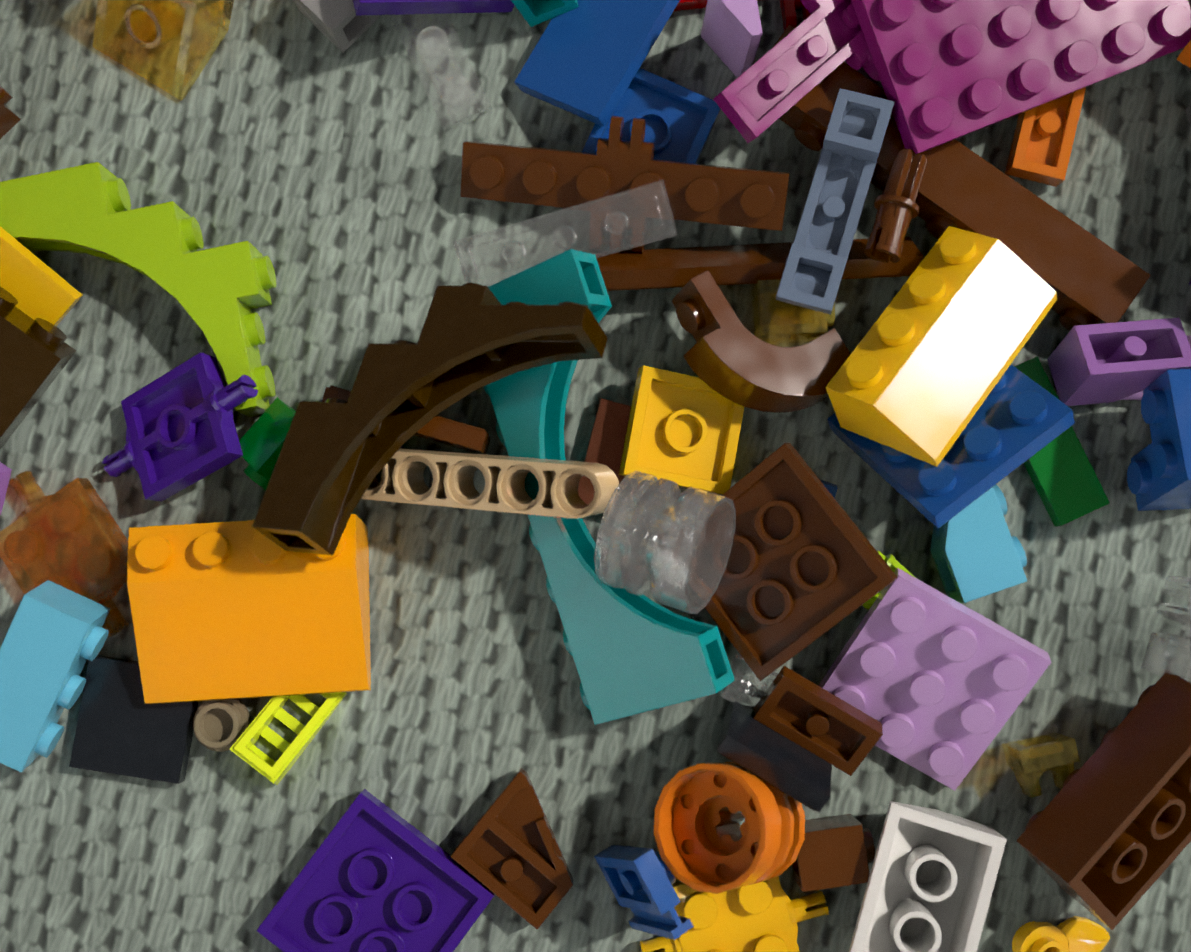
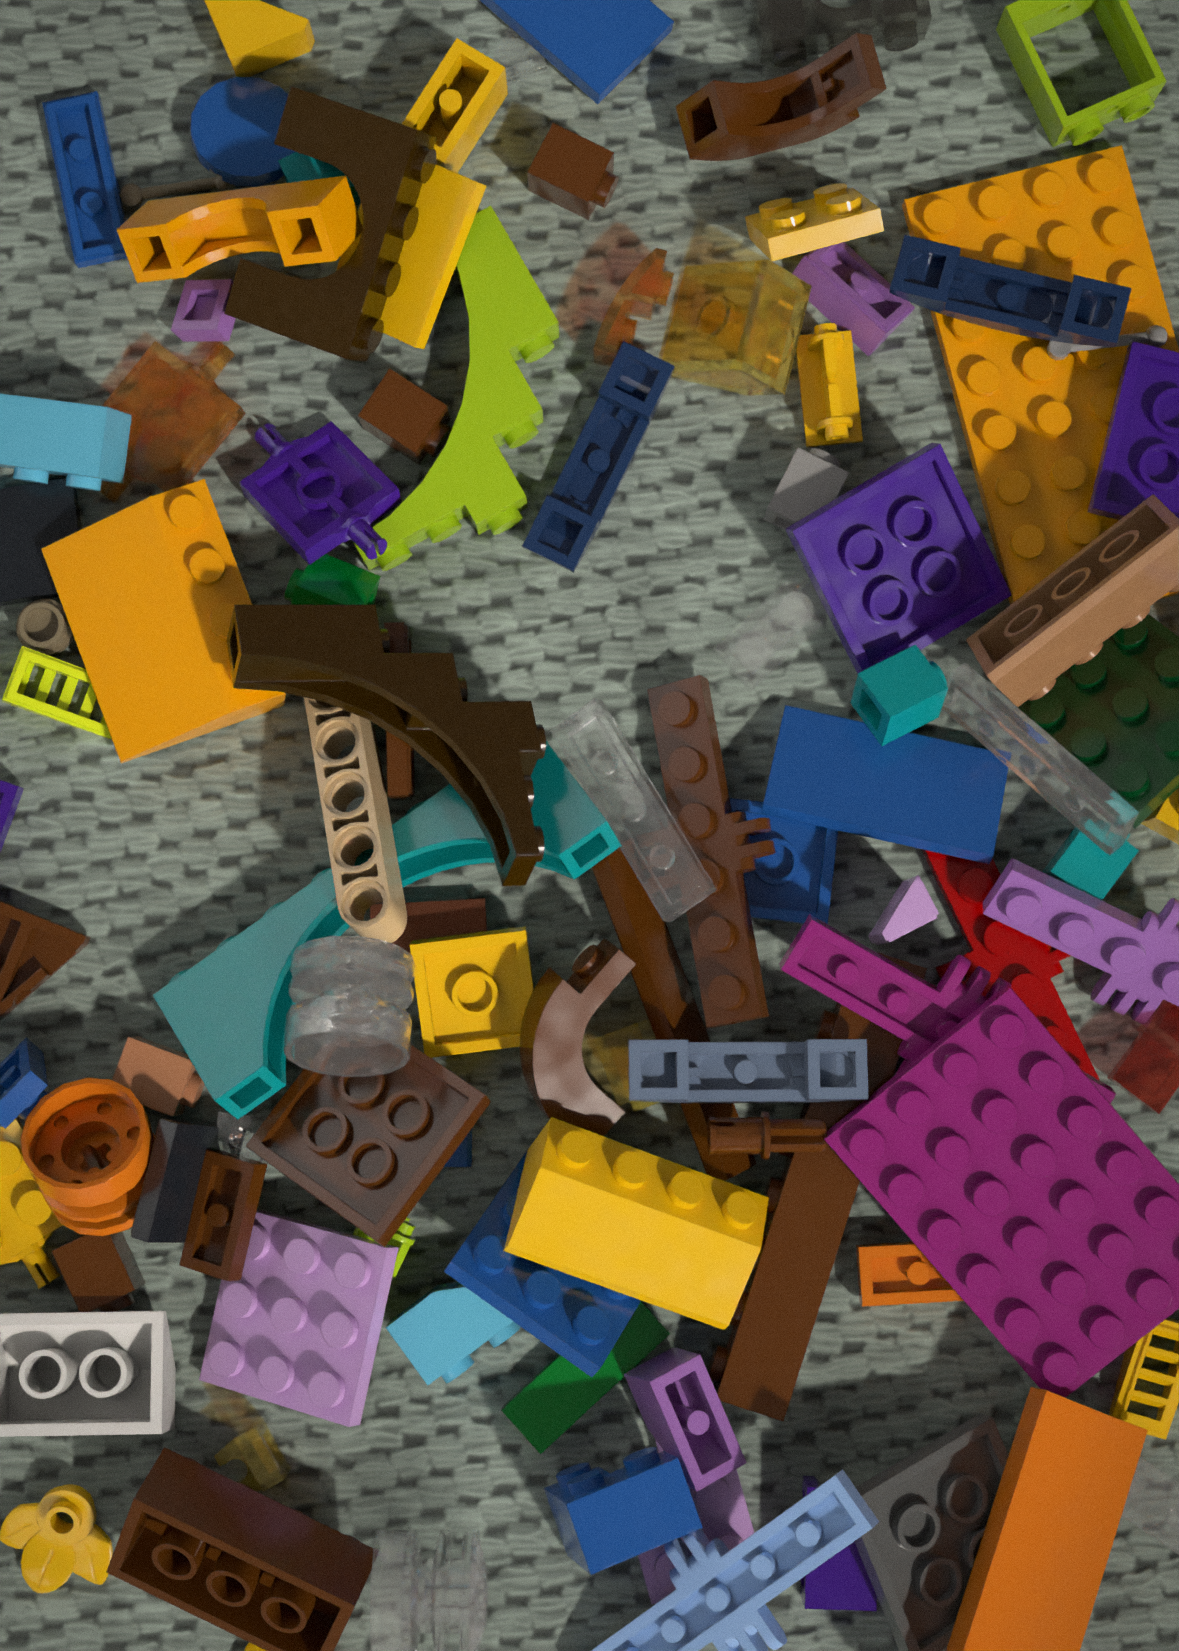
camera: 75 degrees right, 0 degrees up
(100, 85) = (639, 294): none -> clear orange slope
(140, 331) = (406, 418): none -> reddish brown brick
(235, 169) = (599, 457): none -> dark blue slope
(669, 742) = (158, 1076): none -> nougat brick

